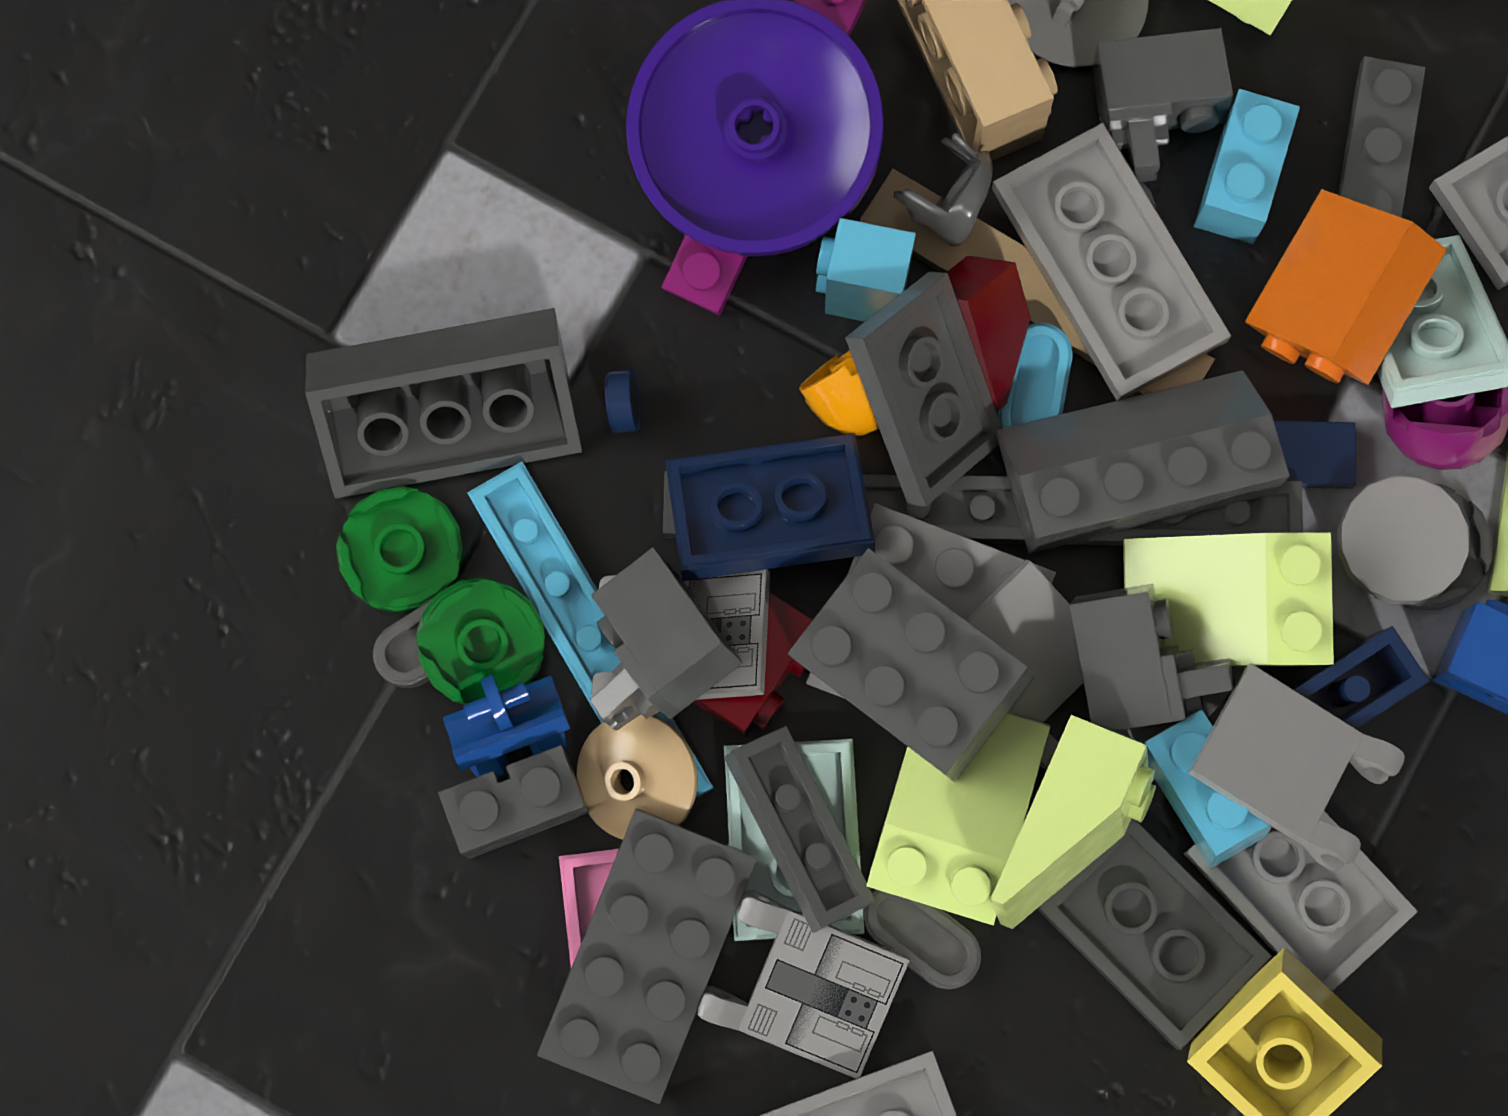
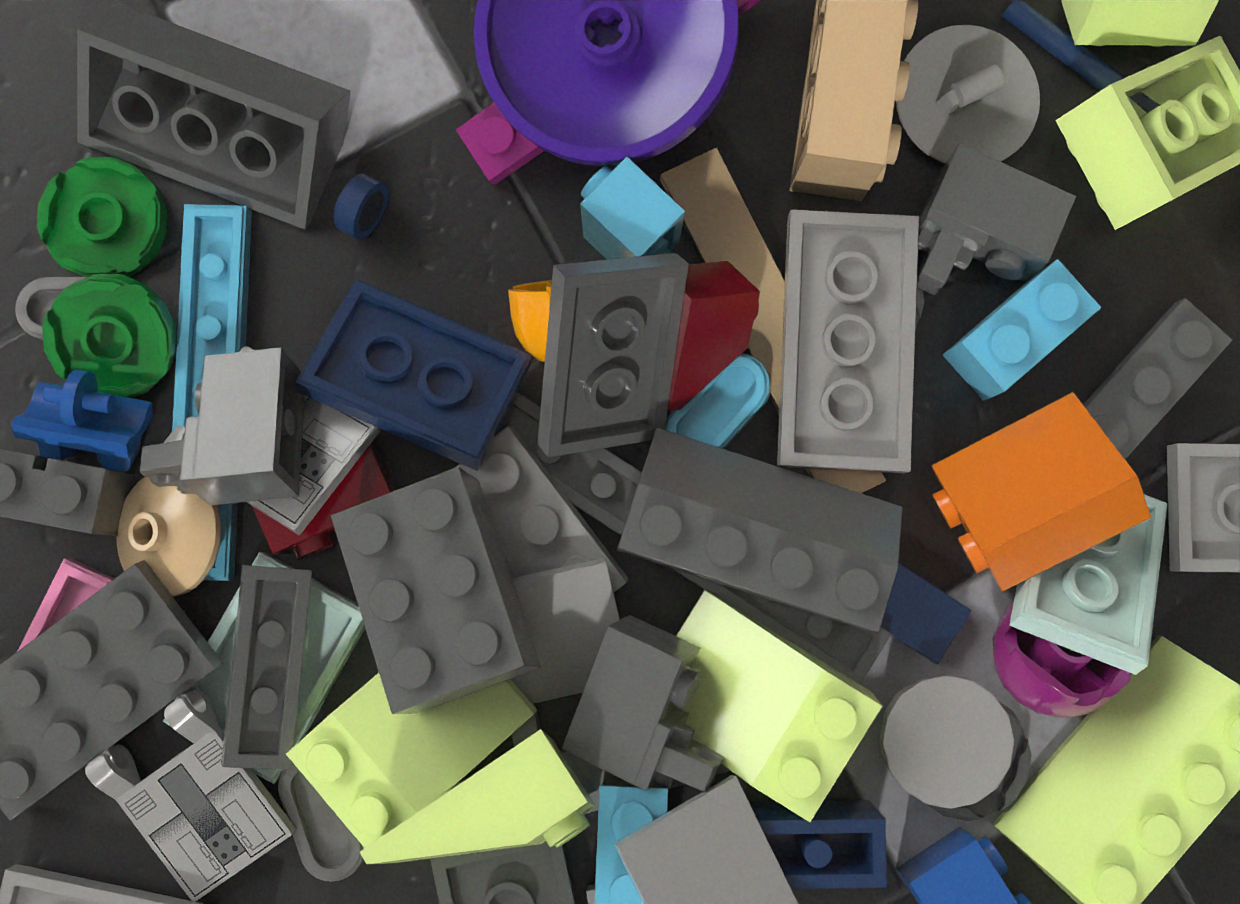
camera: 25 degrees right, 5 degrees up
(959, 206) = (741, 216): dark grey piece -> none

